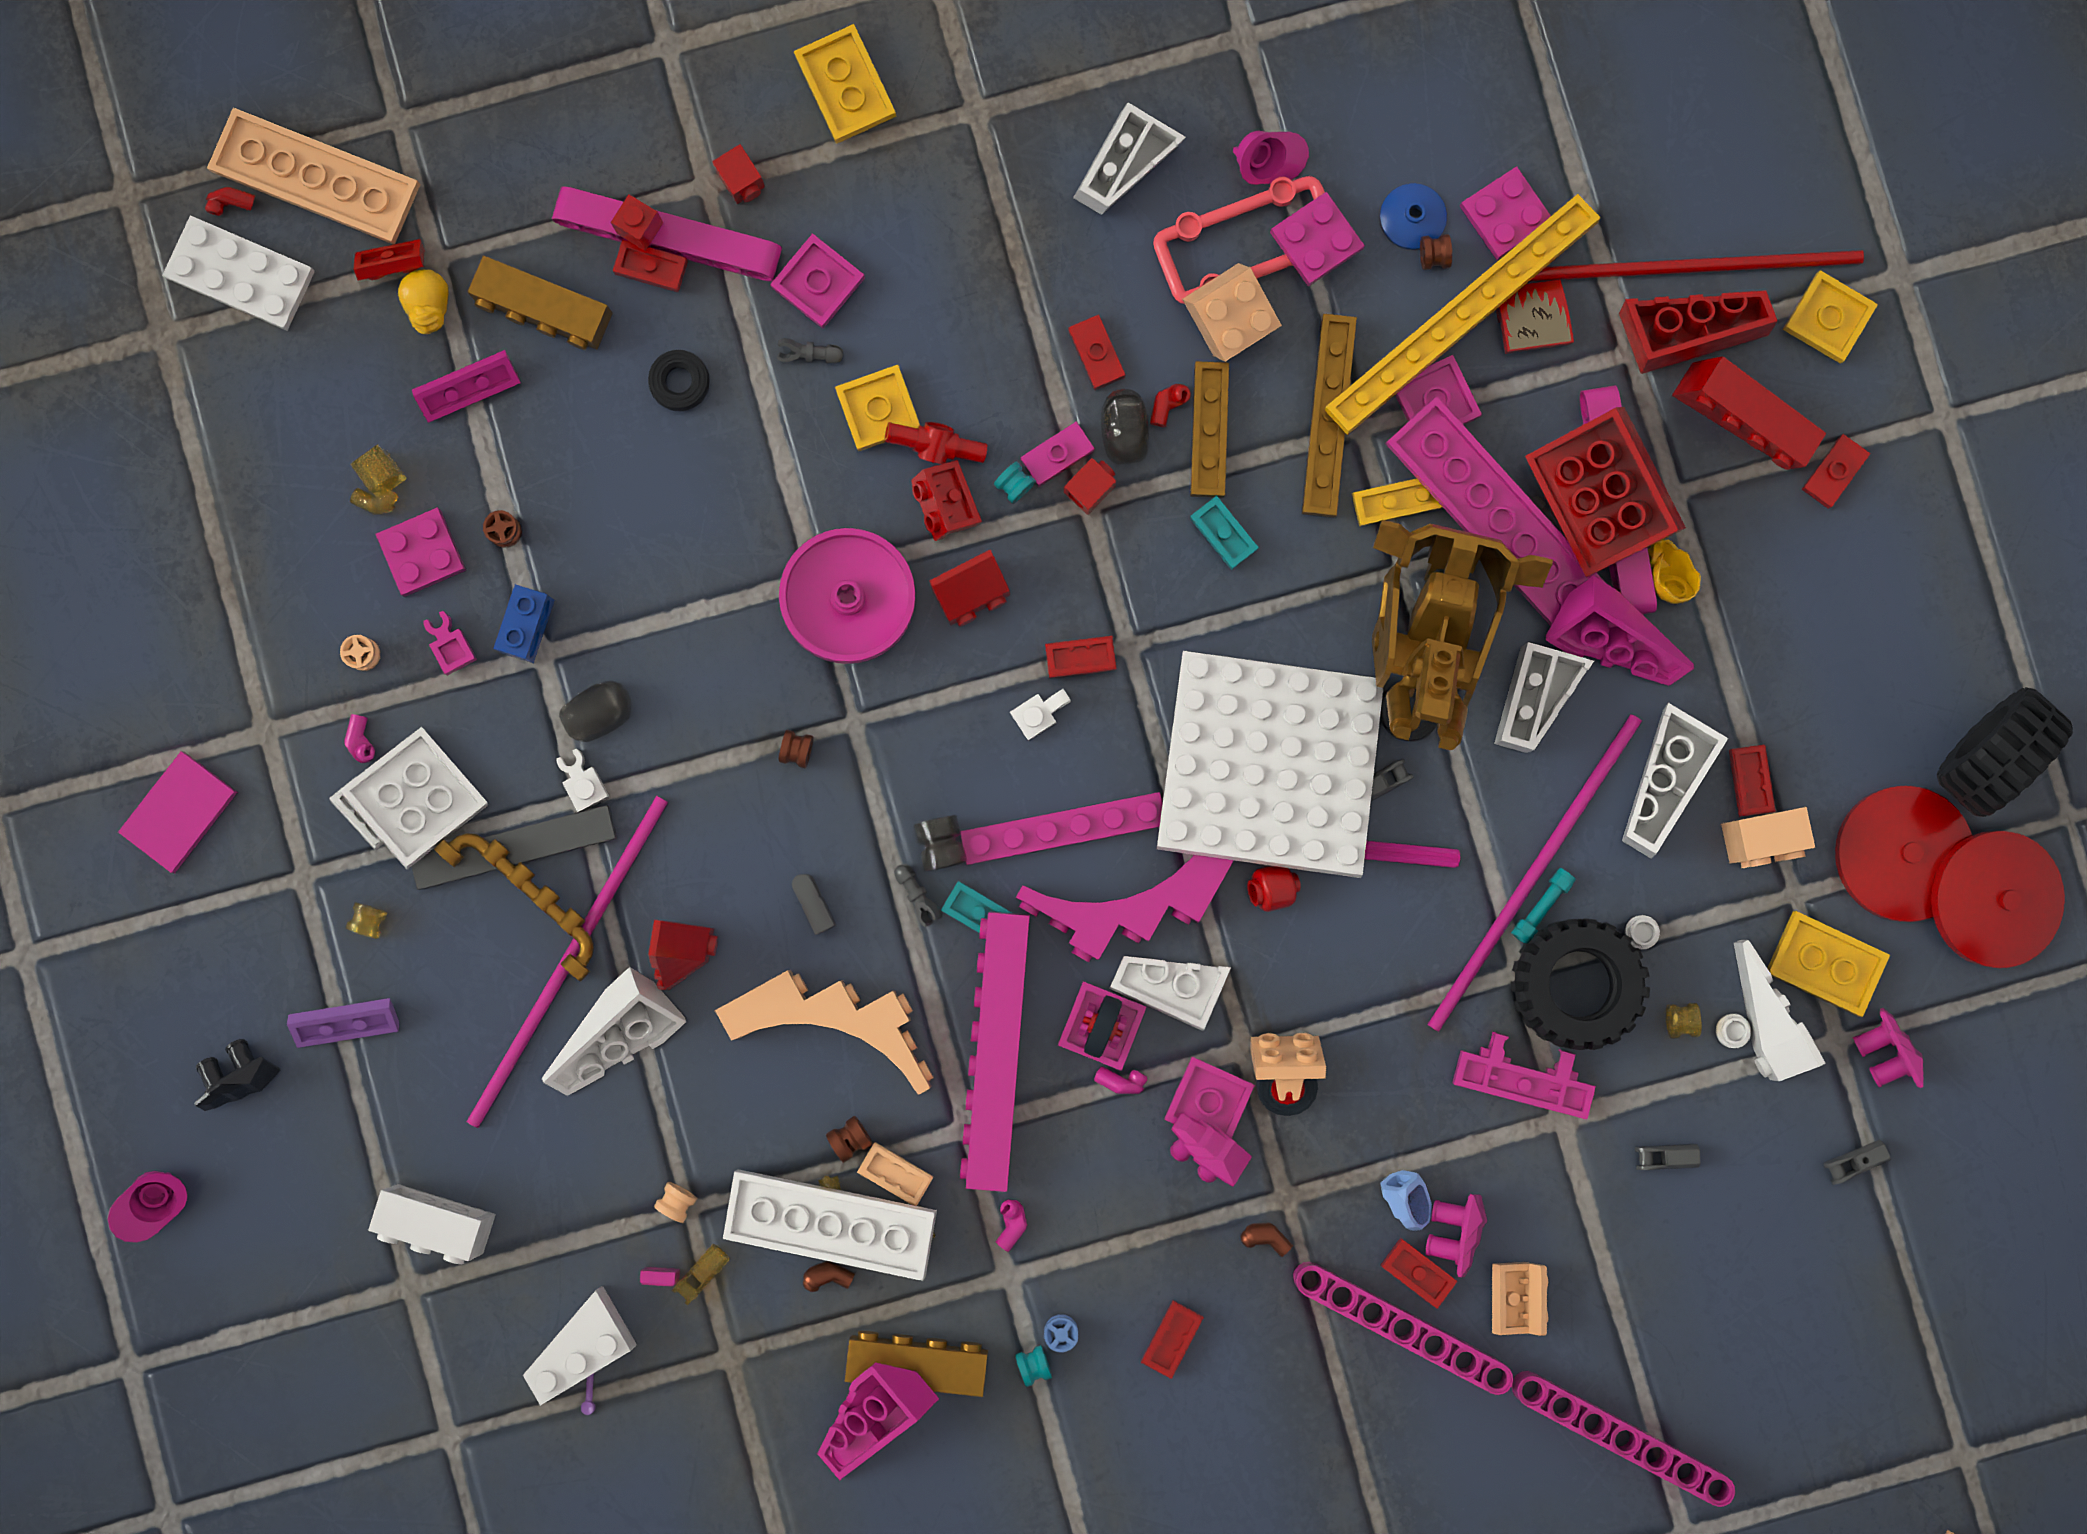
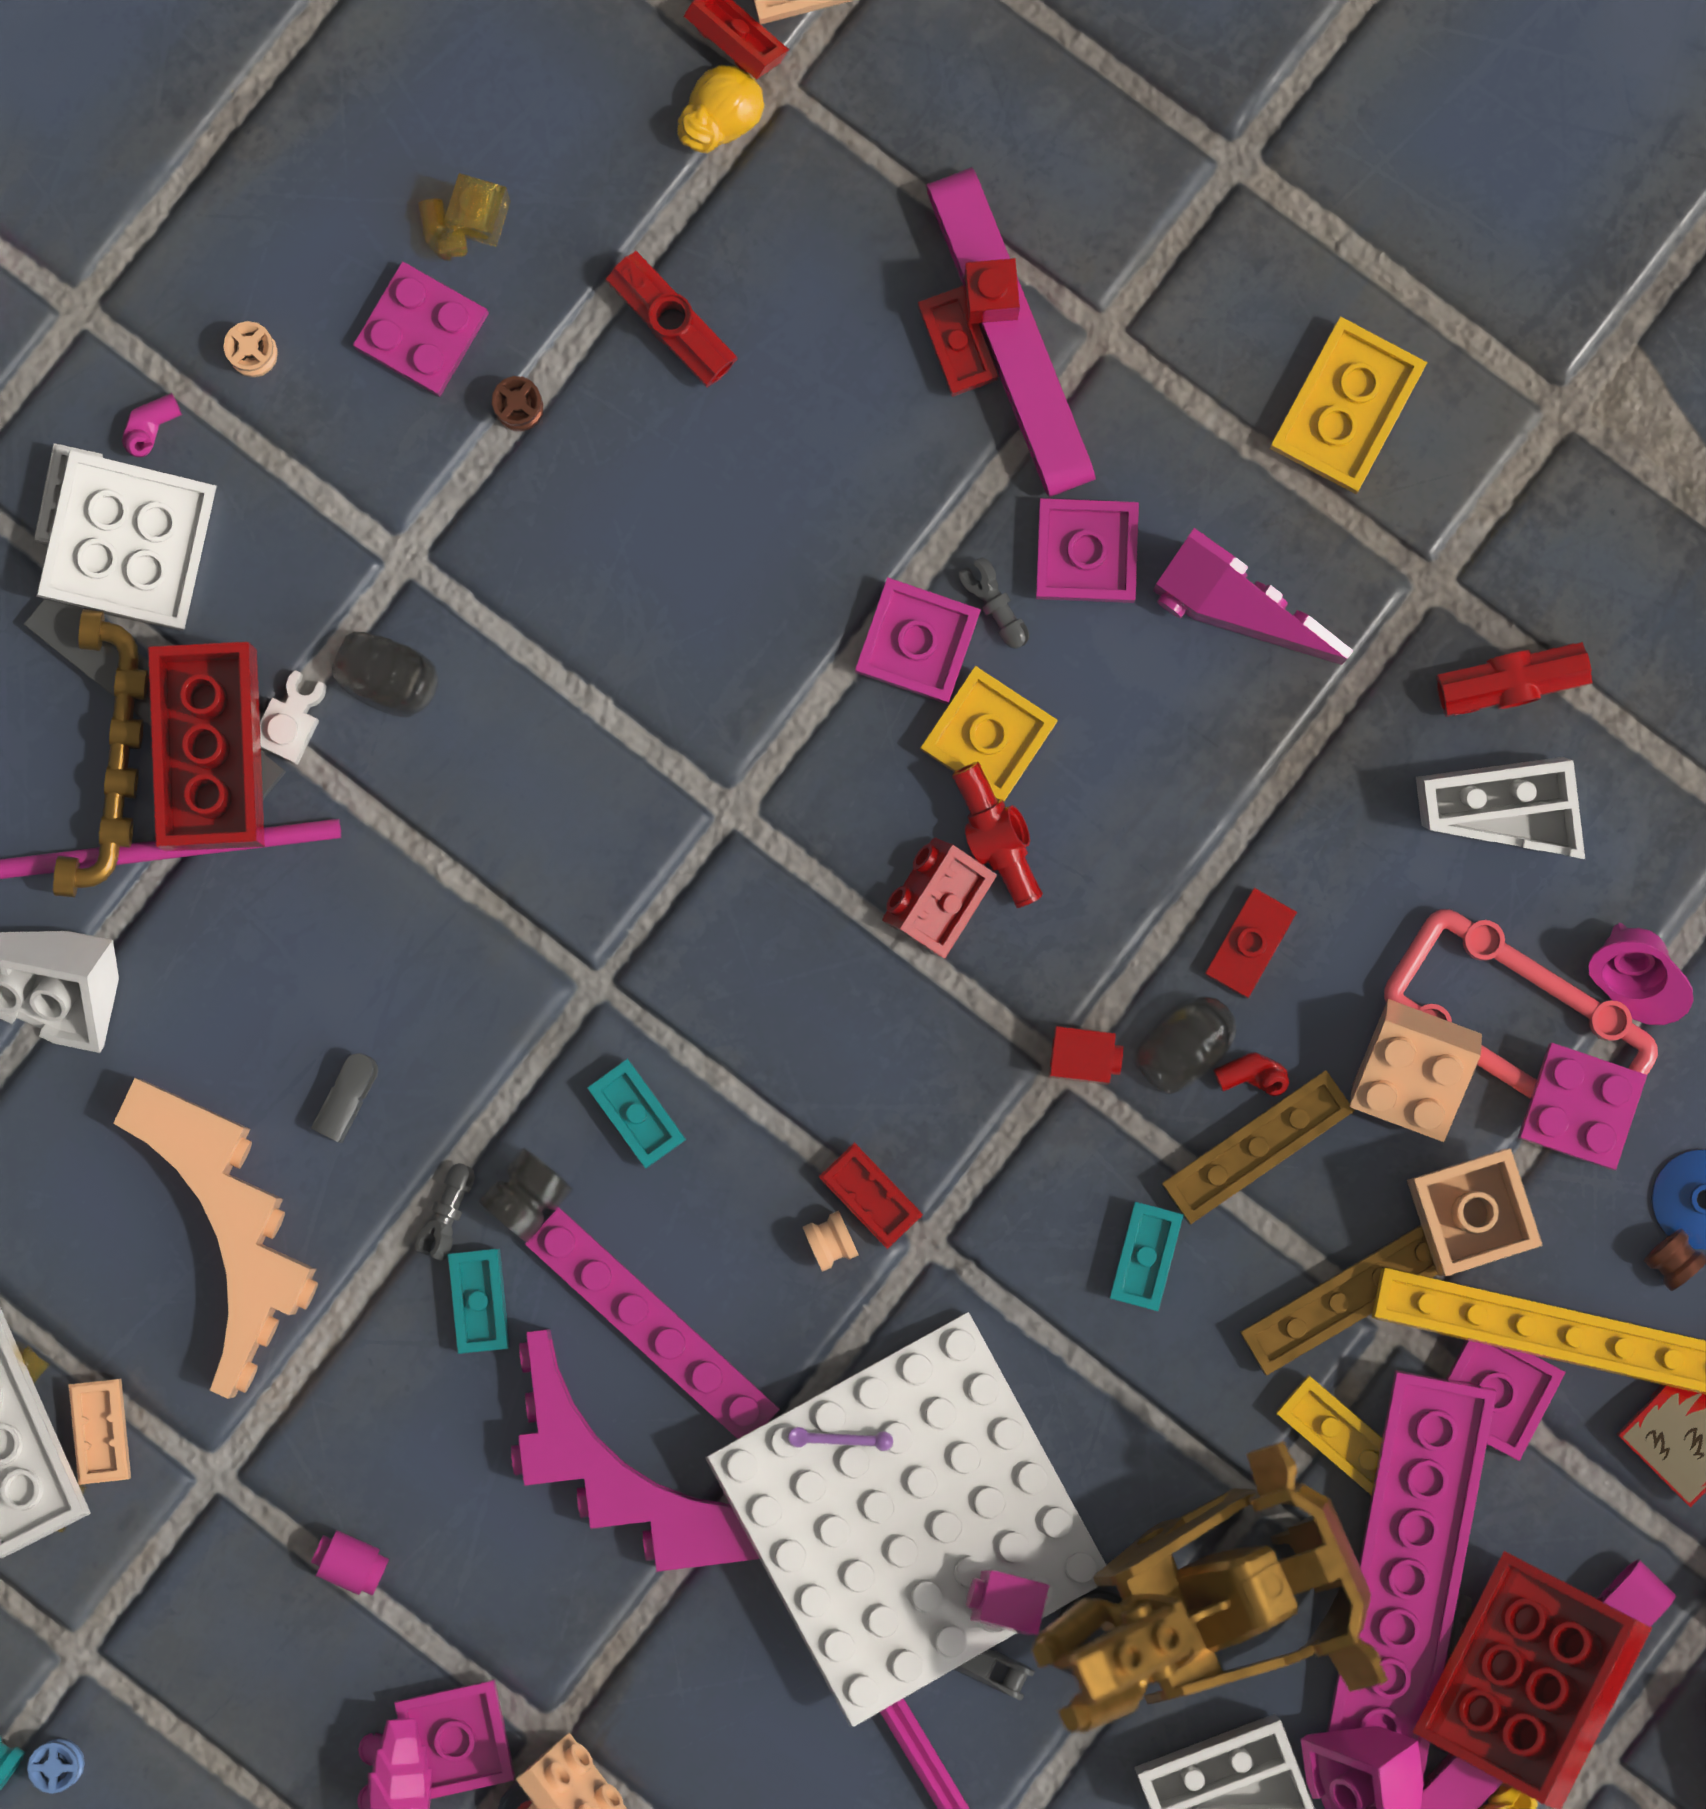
camera: 55 degrees right, 0 degrees up
(450, 647) = (333, 450): dark pink plate -> none
(466, 386) = (654, 235): dark pink plate -> none
(498, 412) = (650, 297): none -> red piece
(524, 623) = (423, 514): blue brick -> none
(540, 303) = (816, 246): pearl gold brick -> none
(561, 835) = (206, 746): none -> red brick
(664, 365) = (841, 446): black tyre -> none
(679, 951) = (175, 983): red wedge -> none
(739, 175) = (1143, 364): red brick -> none
(796, 749) = (512, 941): copper wheel -> none
(797, 408) = (917, 640): none -> dark pink plate
(847, 595) = (736, 867): dark pink dish -> none
(856, 1135) = (100, 1346): copper wheel -> none
(892, 226) = (1214, 590): none -> dark pink wedge
(940, 750) = (636, 1113): none -> teal plate
(970, 589) = (851, 1006): red slope -> none
(997, 1051) = (330, 1444): dark pink brick -> none
(1014, 482) = (1020, 963): teal wheel -> none
(1015, 1224) = (145, 1615): dark pink arm -> none
(1036, 716) = (763, 1194): white plate -> none
(1057, 454) = (1093, 987): dark pink plate -> none
(1060, 106) = (1514, 679): none -> red piece
(1070, 1088) = (349, 1563): none -> dark pink brick
(1089, 696) = (830, 1241): none -> light nougat wheel
(1102, 1026) = (452, 1546): dark pink plate -> none
(1121, 1085) = (398, 1621): dark pink arm -> none
(1173, 988) = (558, 1599): white wing -> none
(1183, 788) = (800, 1437): none -> medium lavender hinge
(1273, 888) = (763, 1630): red head -> none
(1332, 336) = (1474, 1212): none -> light nougat brick
(1356, 741) = (1007, 1602): none -> dark pink brick

